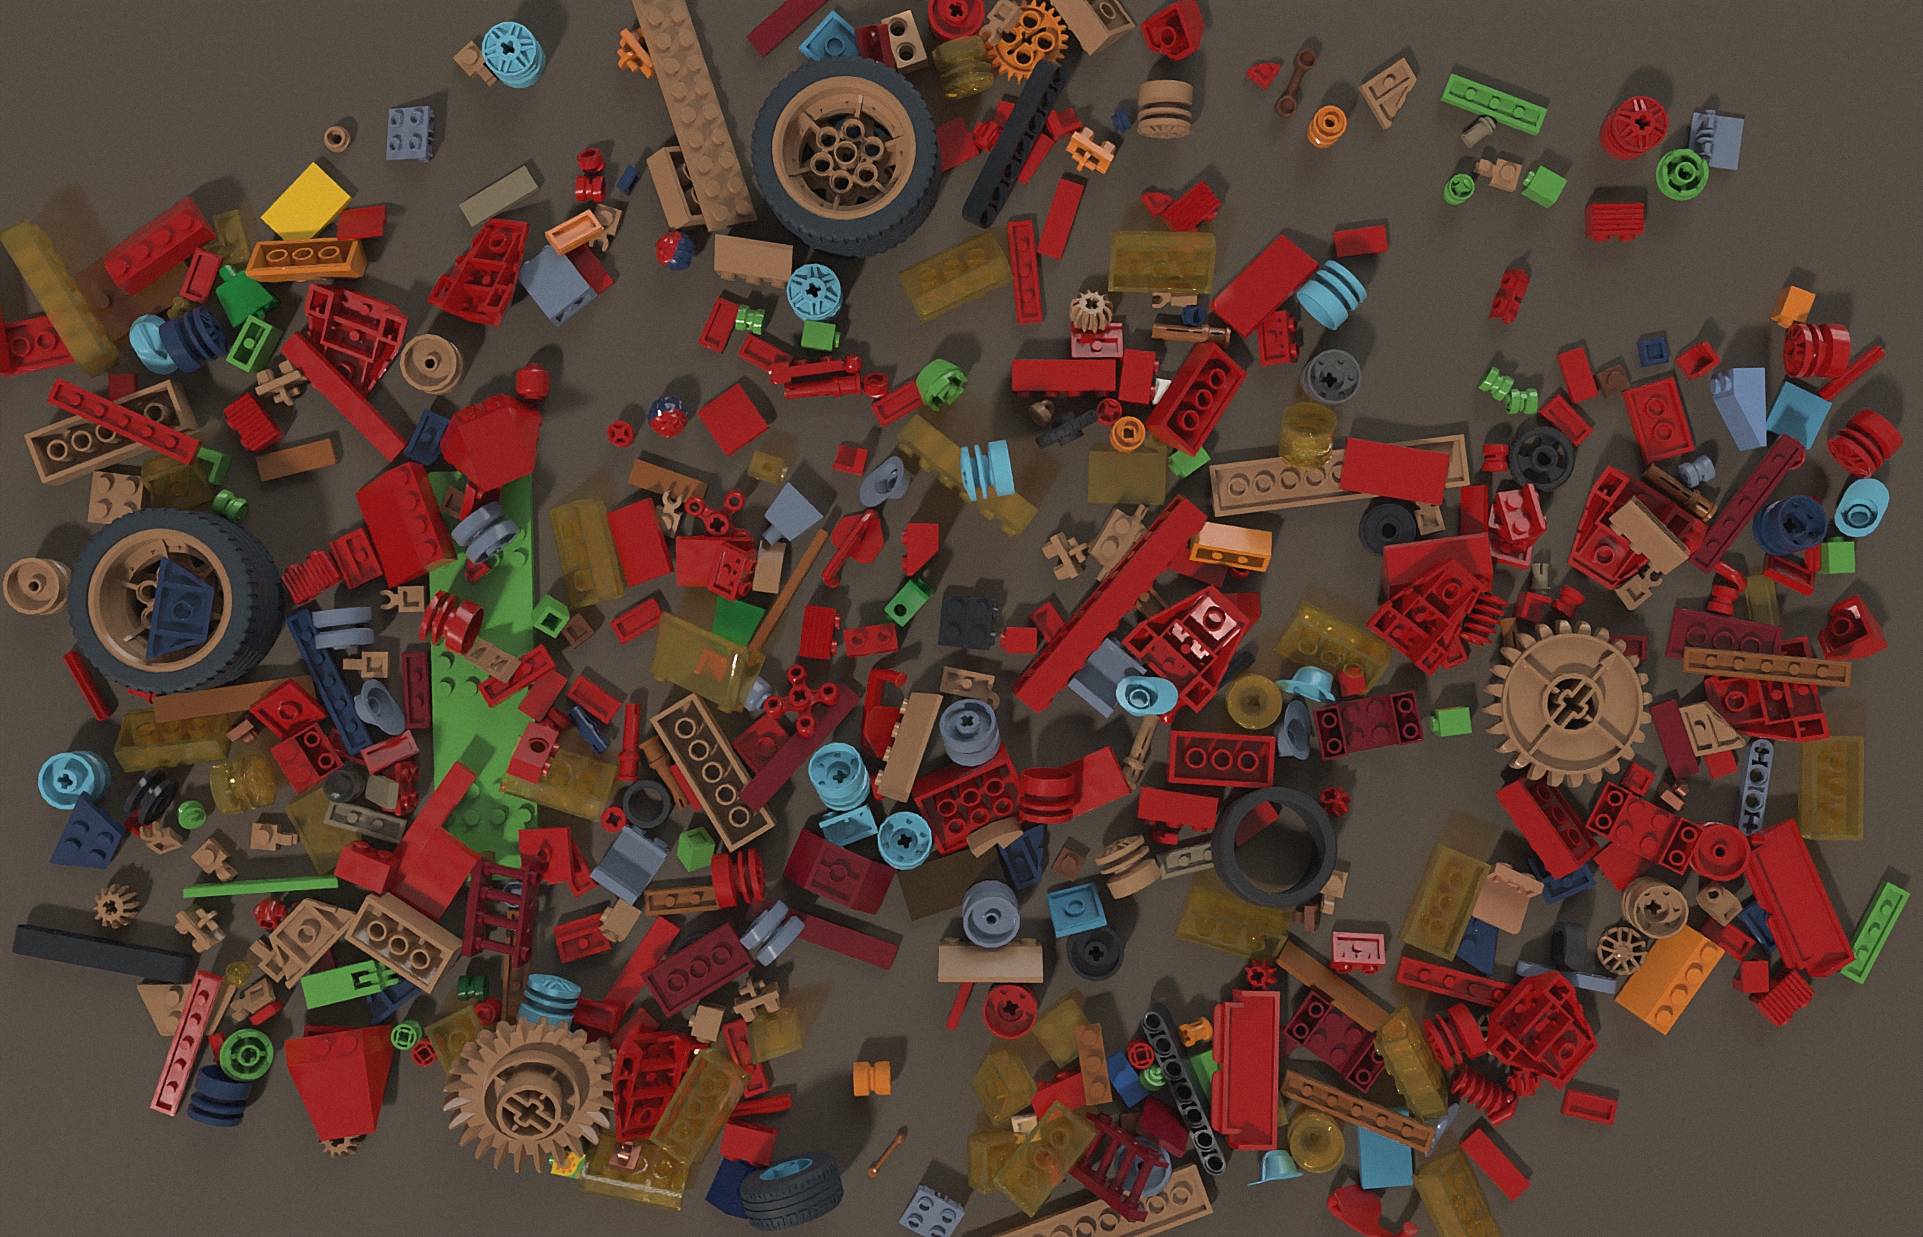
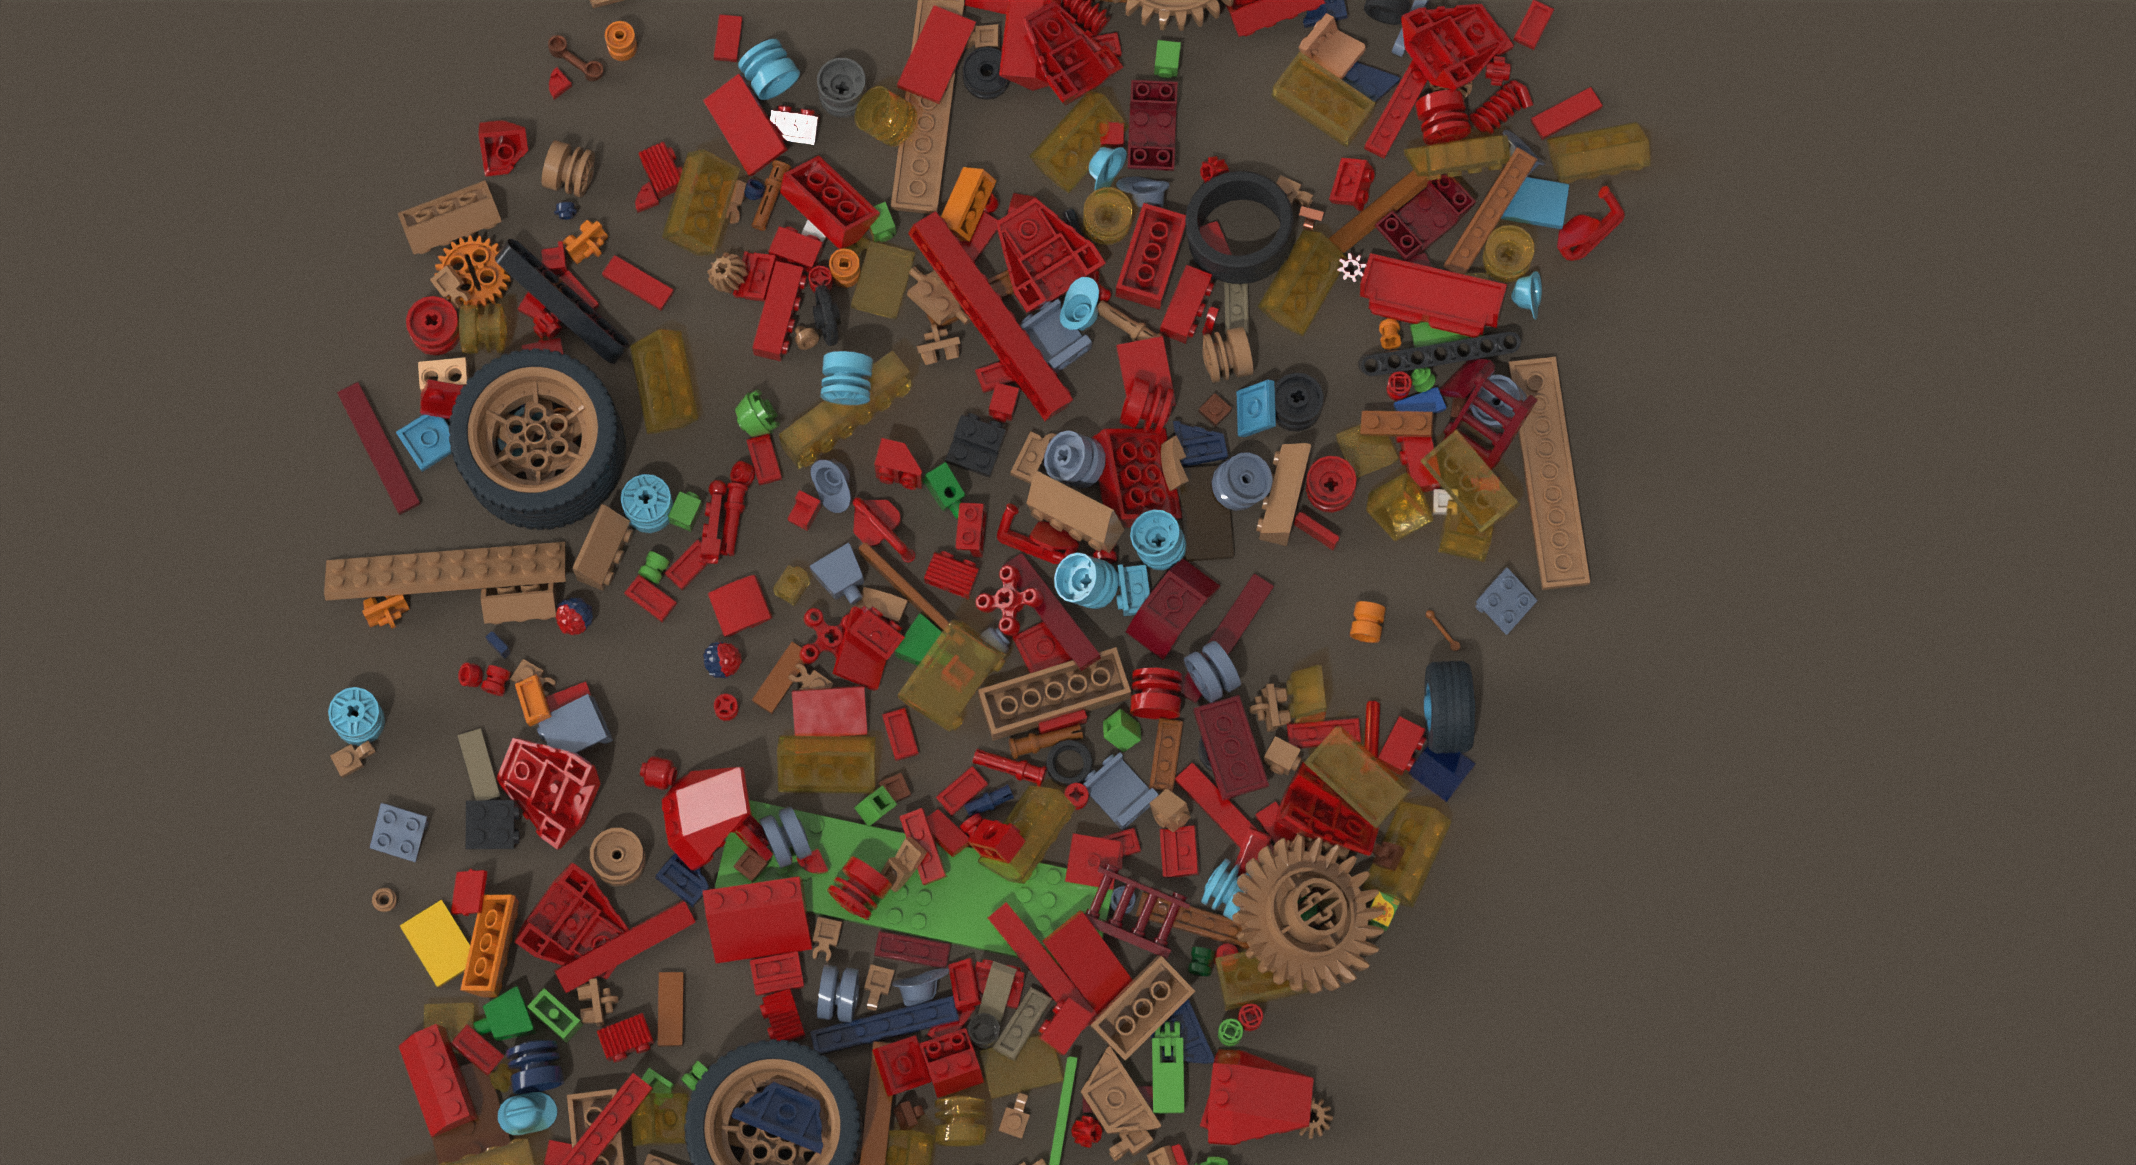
camera: 80 degrees left, 15 degrees down
(438, 227) = (491, 824): none -> black plate
(1024, 272) = (691, 325): red tile -> none

